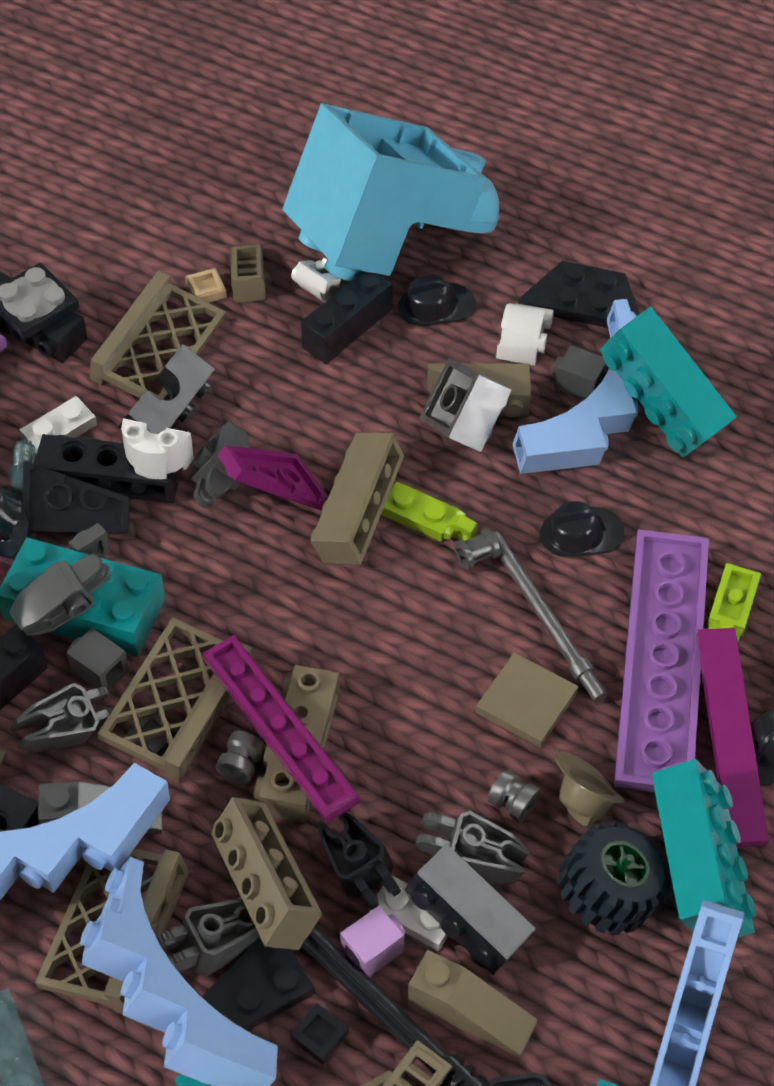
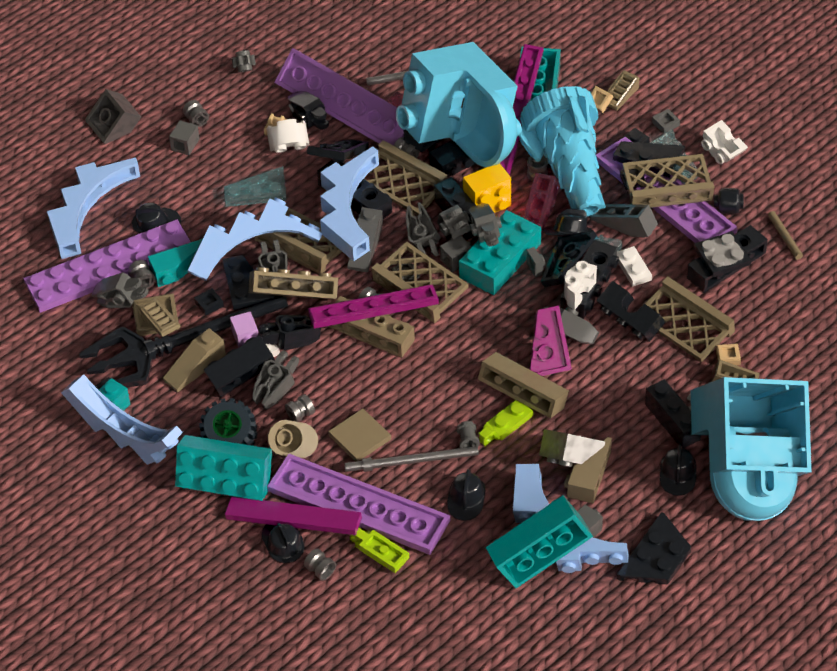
camera: 110 degrees right, 5 degrees down
(50, 659) = (453, 222): none -> dark grey hinge
(523, 333) = (637, 506): white cylinder -> none

